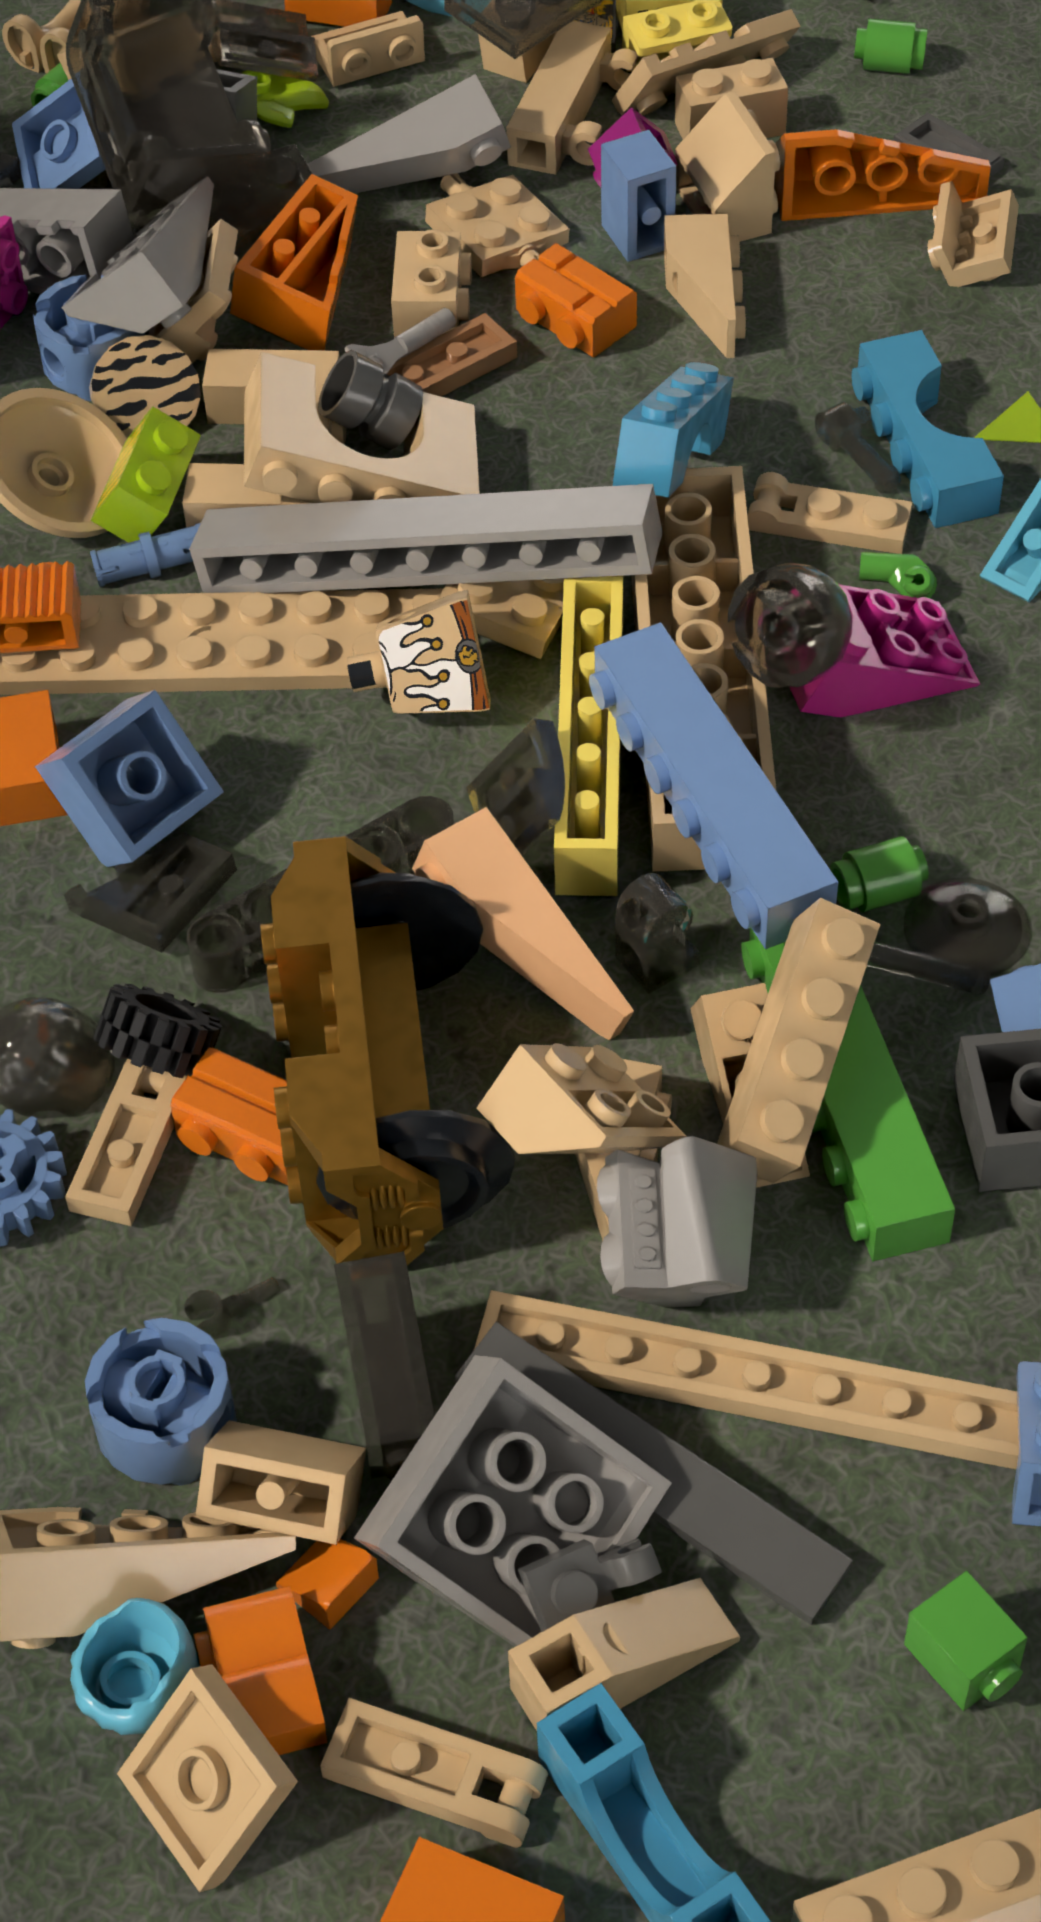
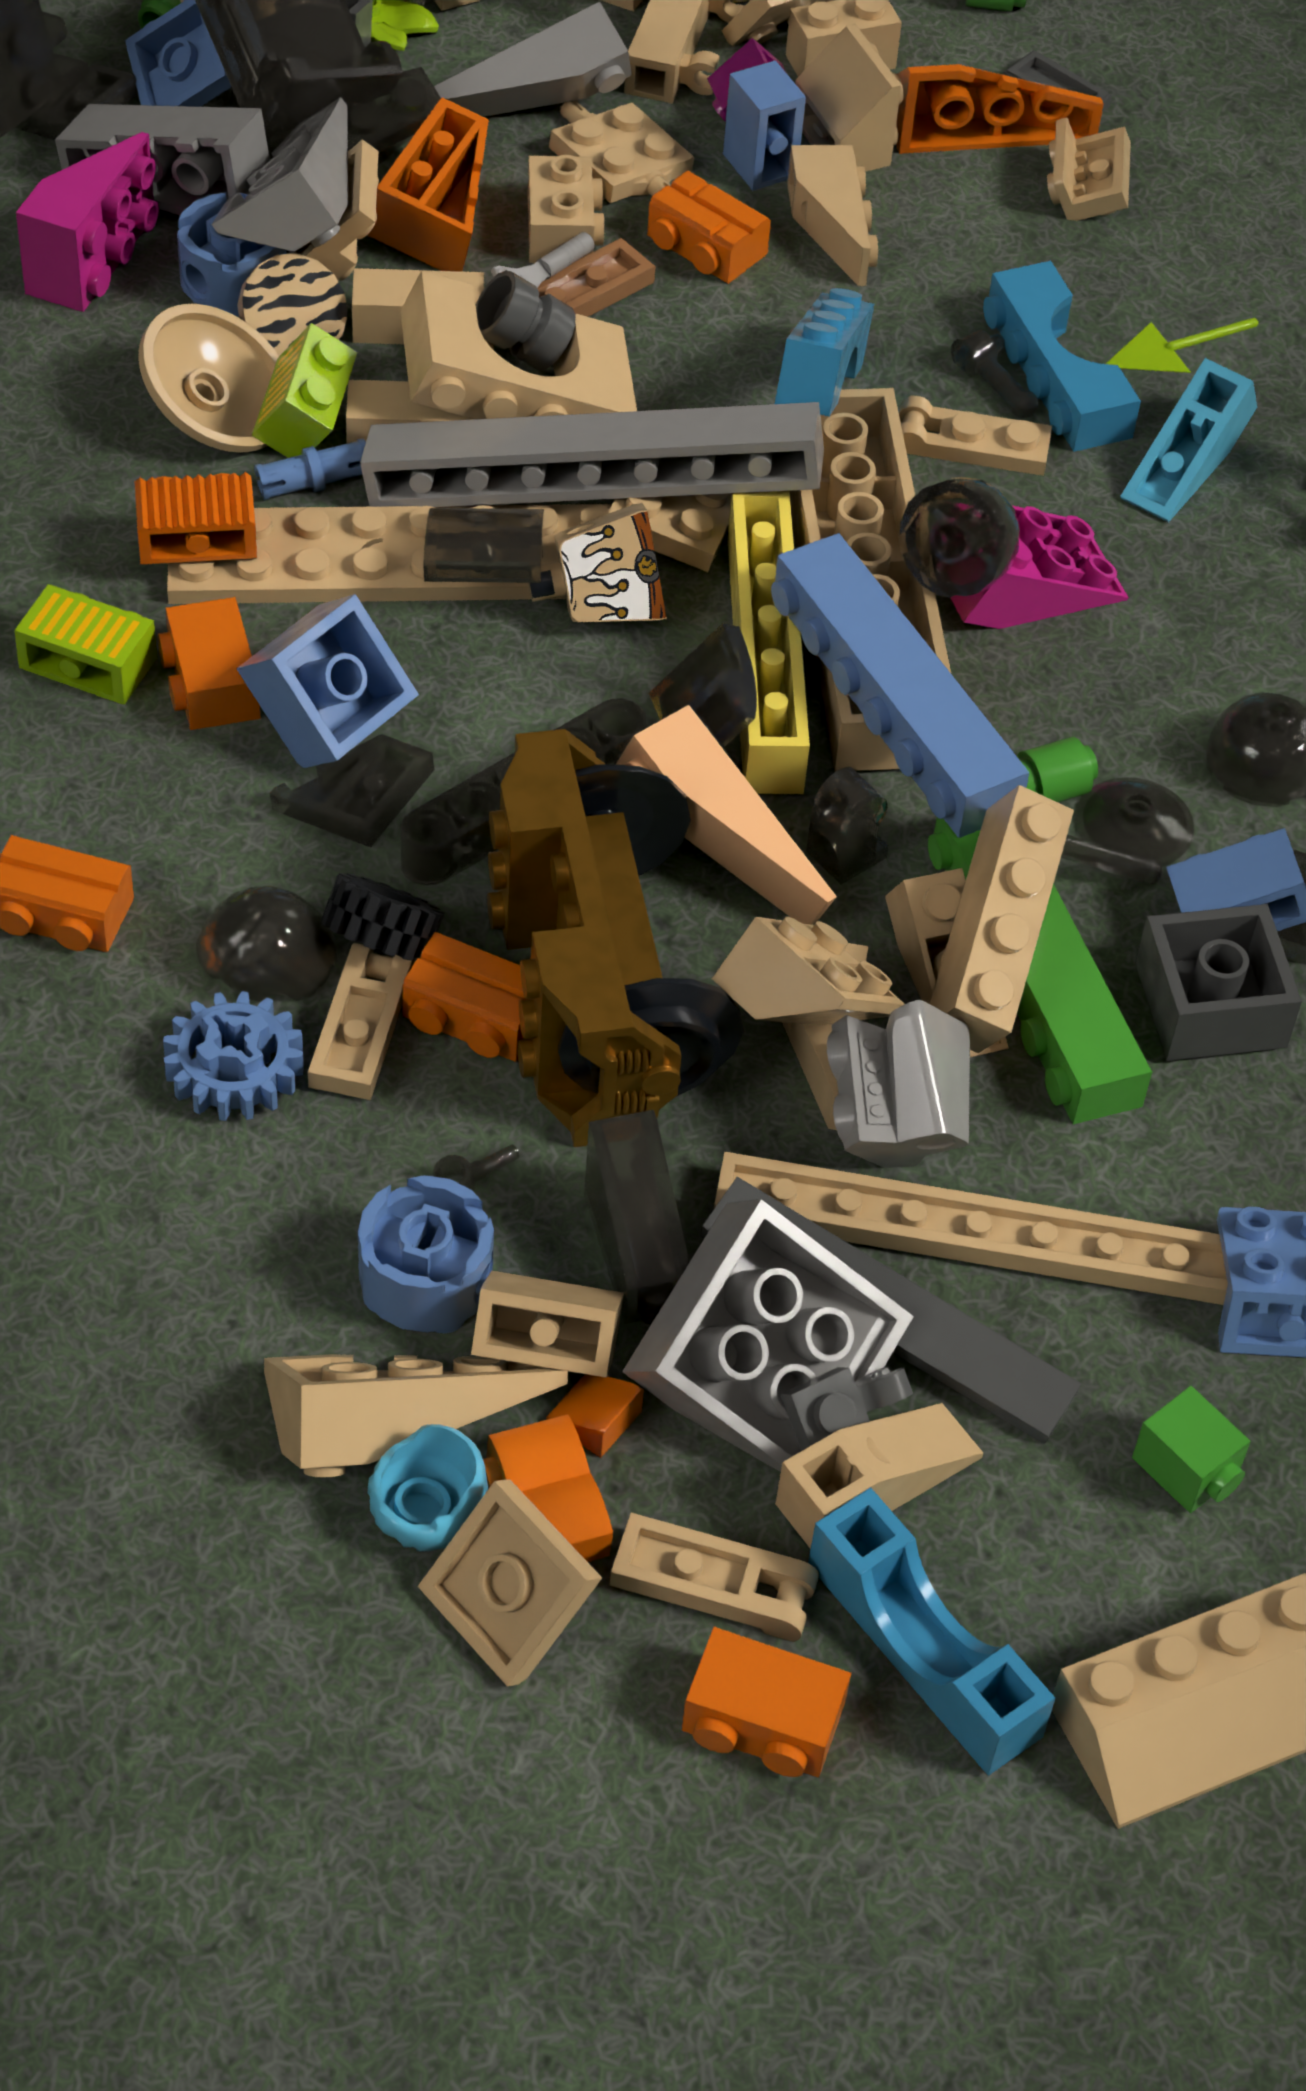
camera: 10 degrees left, 0 degrees up
(306, 634) = (483, 545): none -> clear smoke slope
(902, 571) = (1048, 492): bright green arm -> none

